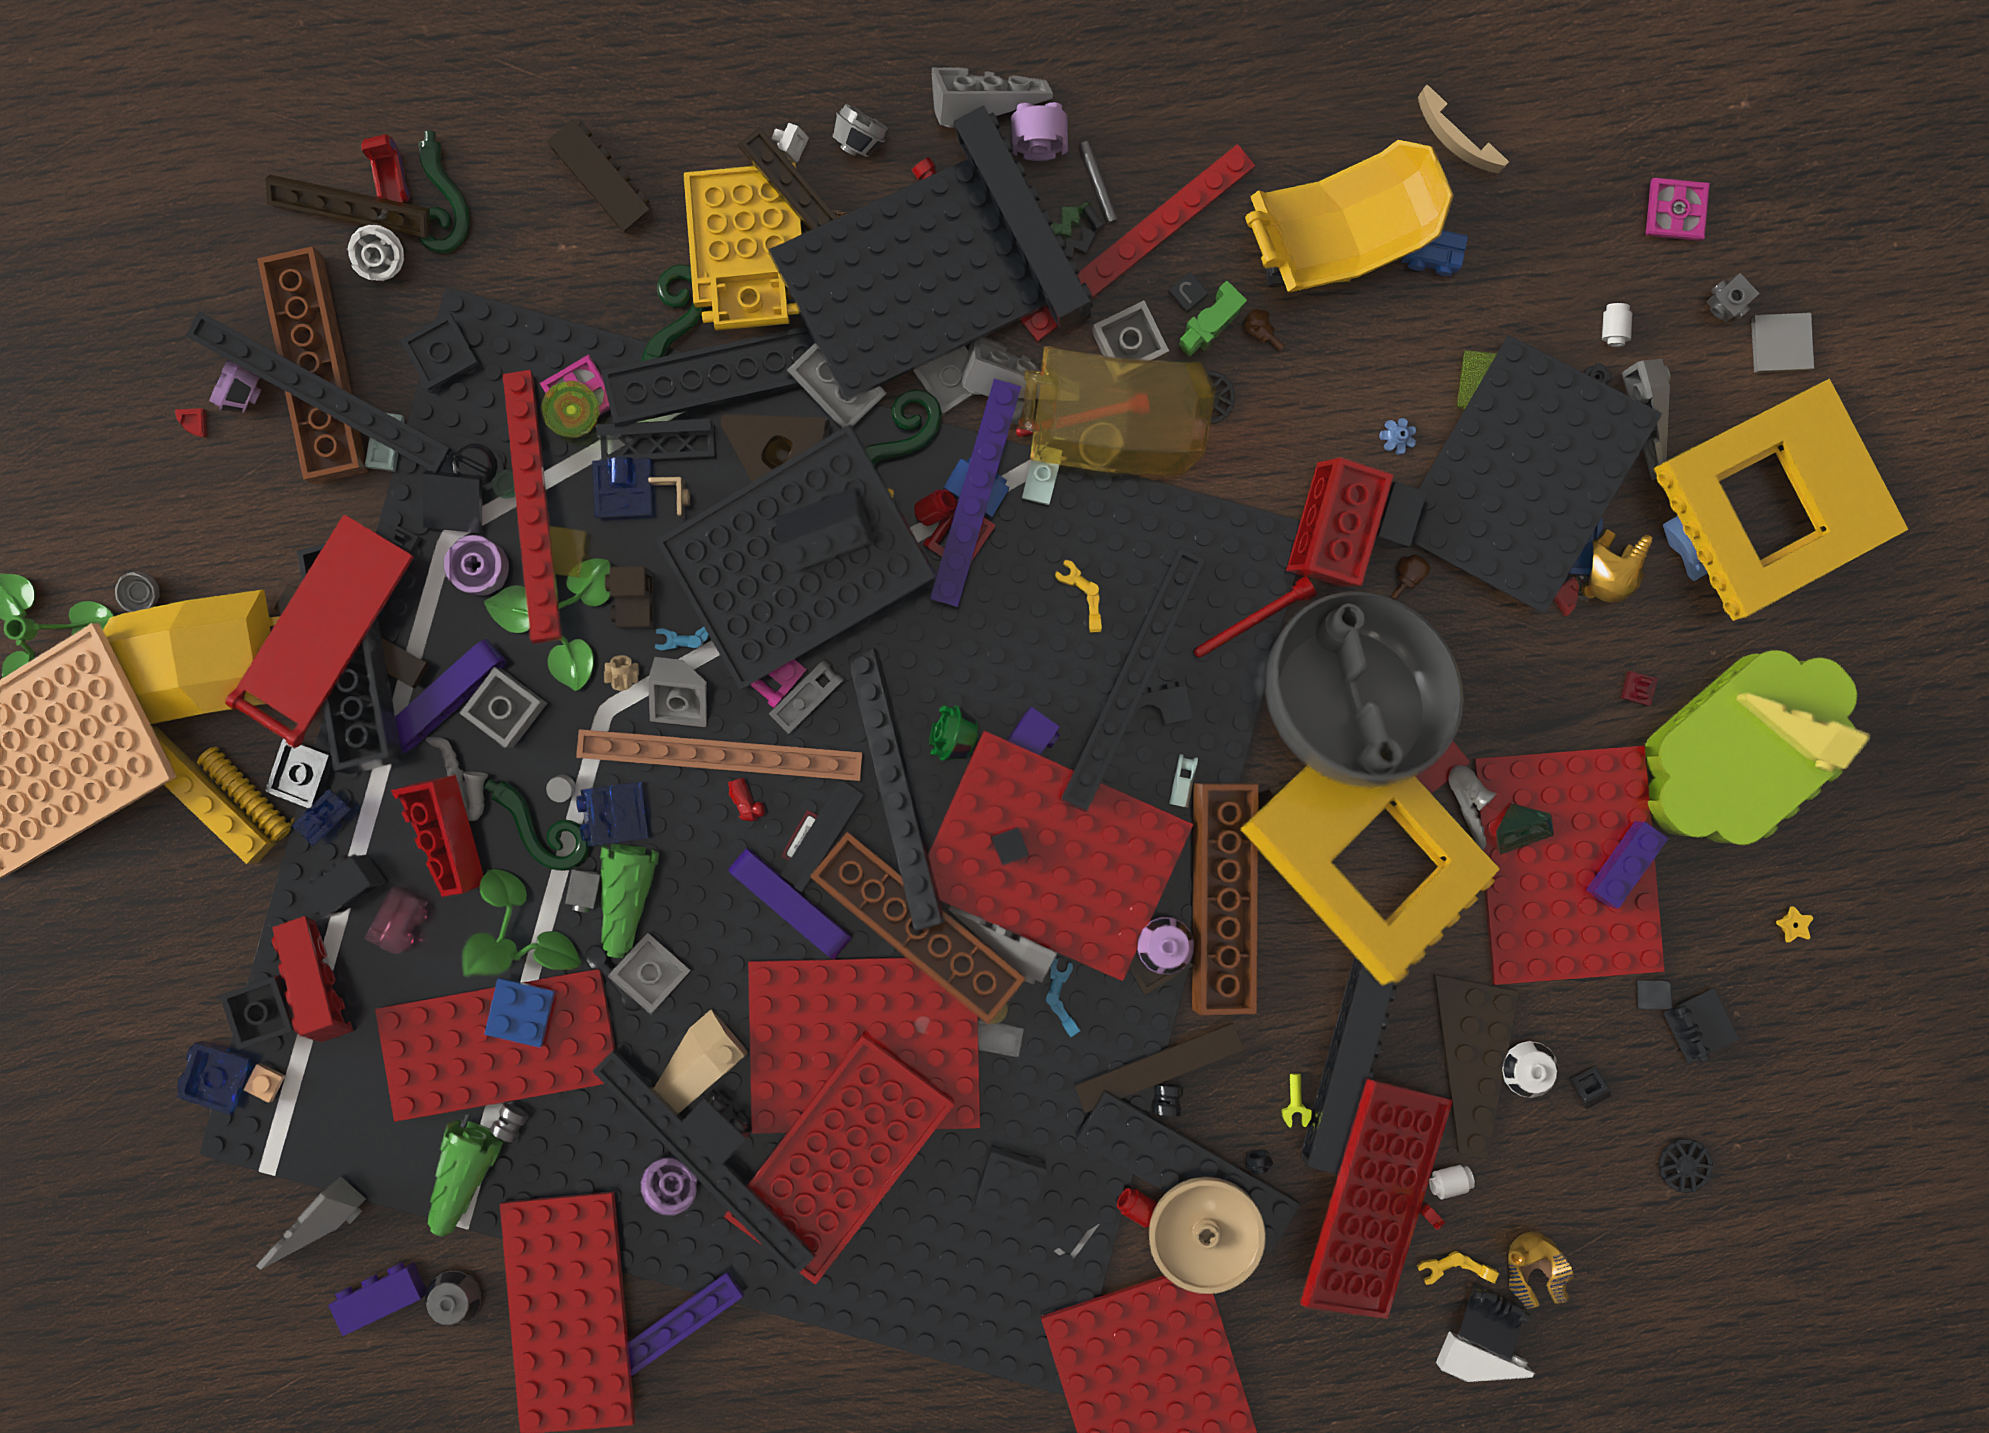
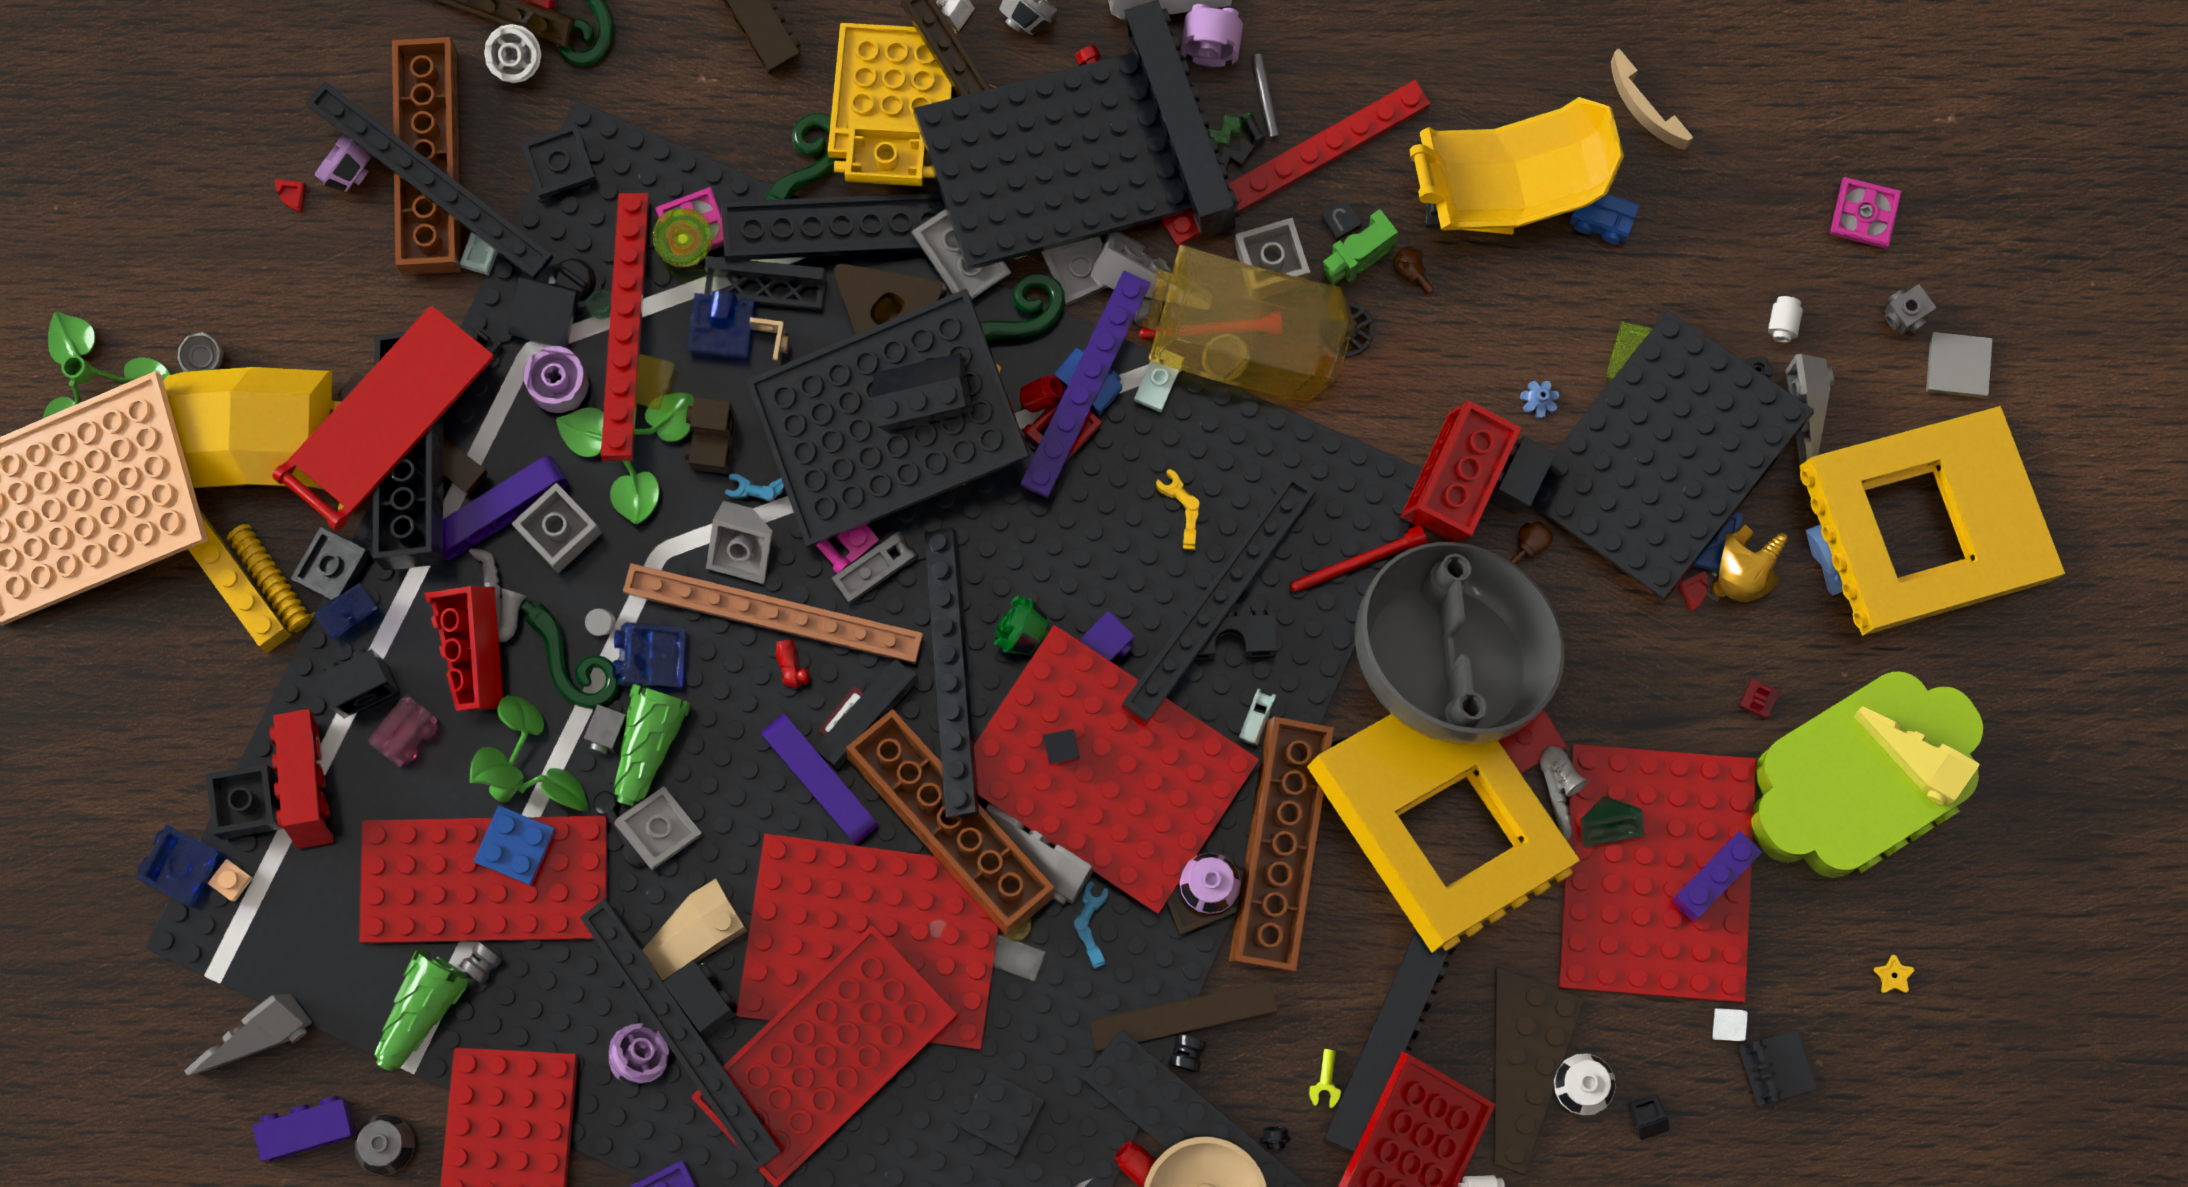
camera: 10 degrees right, 10 degrees down
(621, 673) = (685, 512): tan gear -> none

